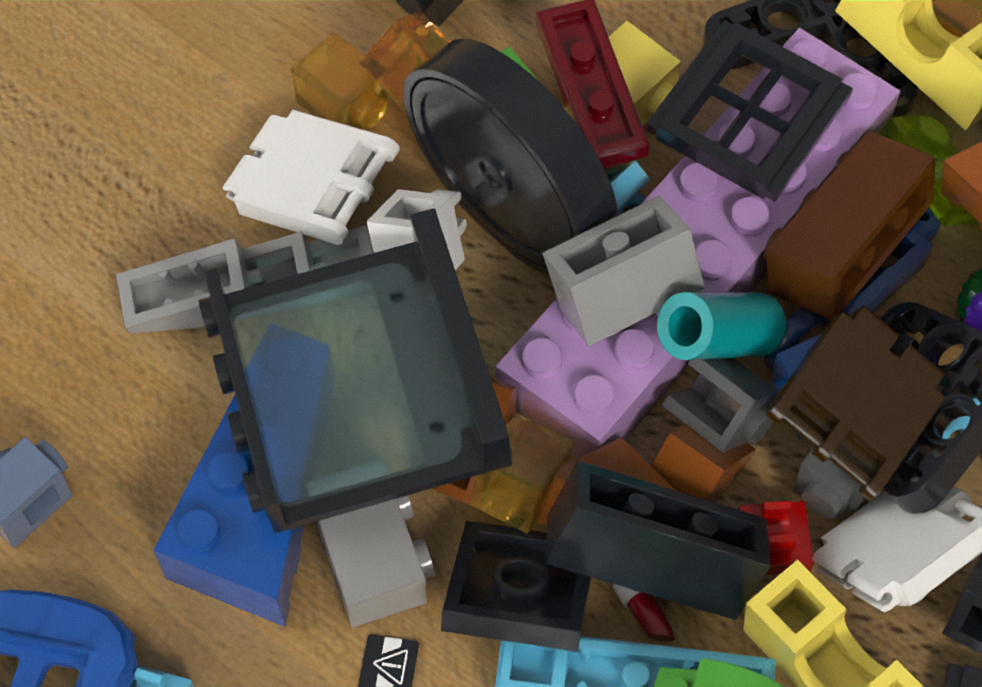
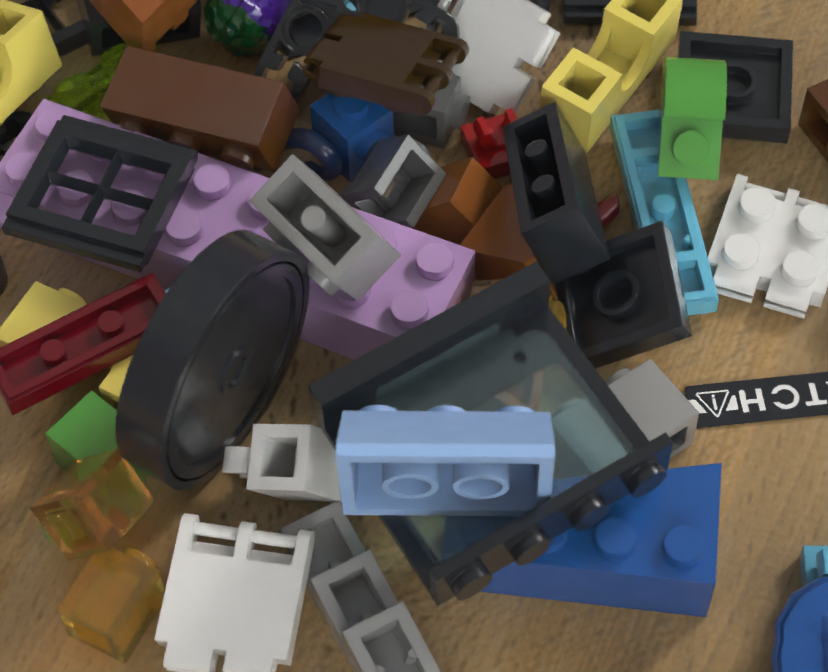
camera: 105 degrees left, 5 degrees down
(319, 304) = (444, 461): none -> light blue slope
(721, 325) = (352, 166): teal brick -> none

